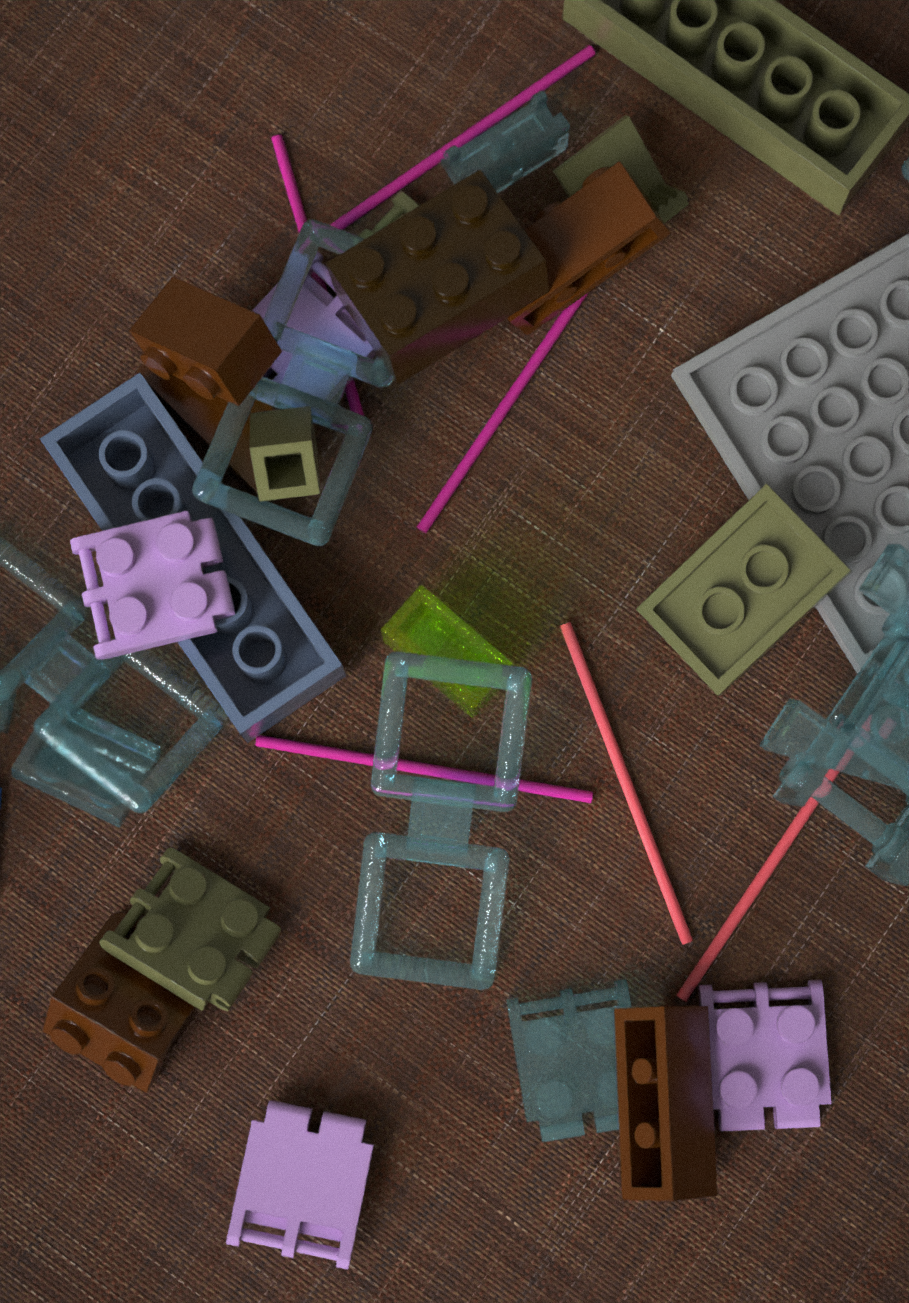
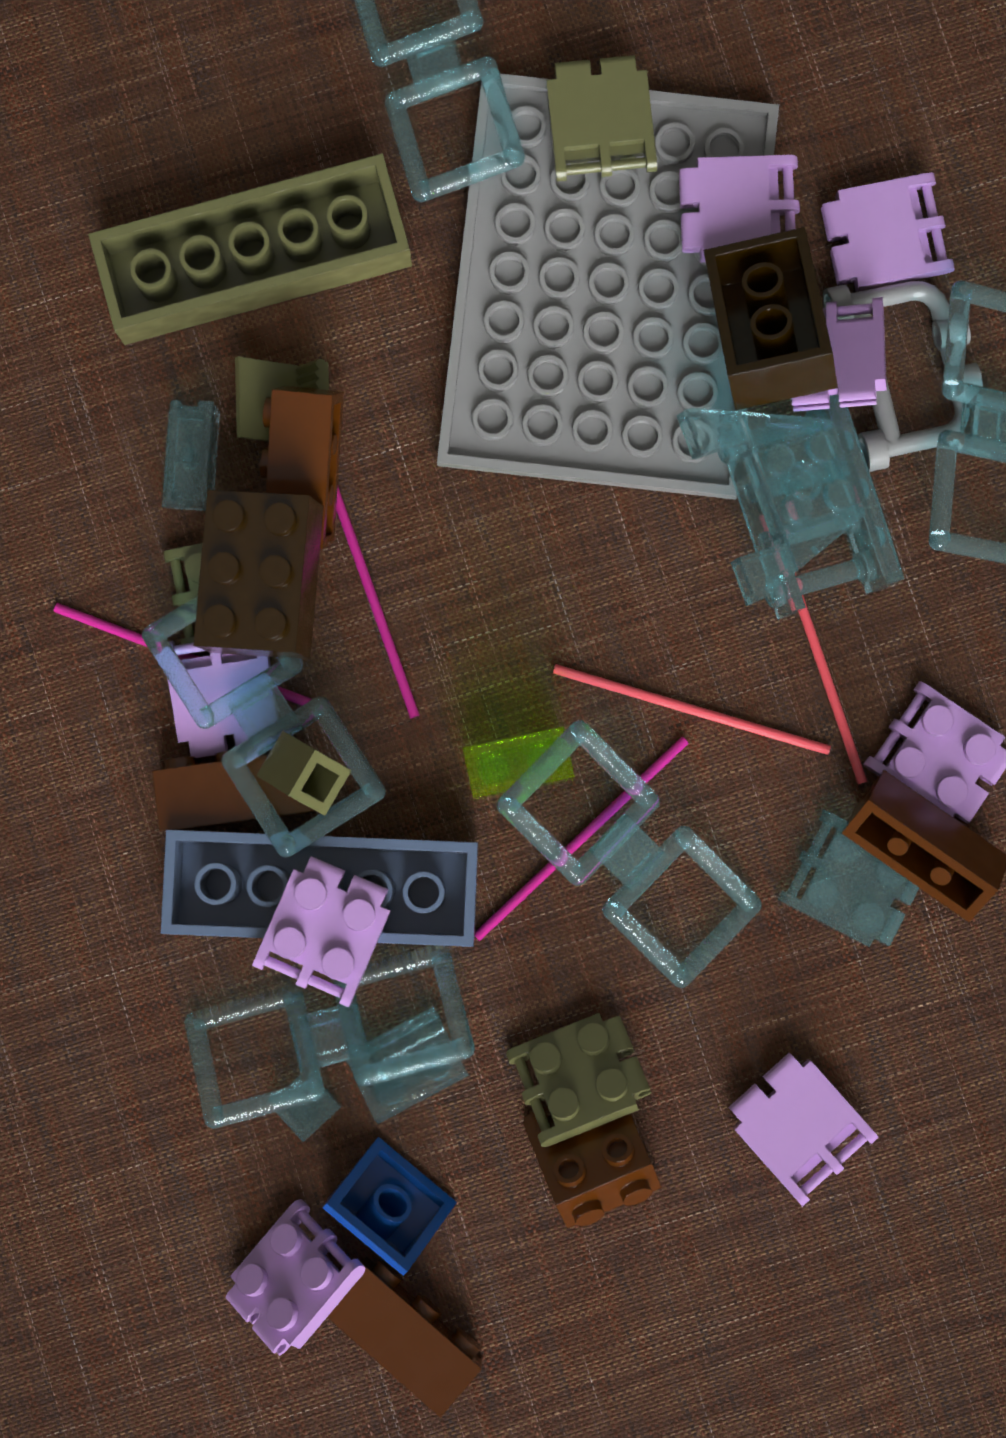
camera: 55 degrees left, 5 degrees up
(205, 342) = (183, 769): reddish brown brick -> none
(464, 138) = (158, 471): dark pink axle -> none
(743, 590) = (626, 532): olive plate -> none

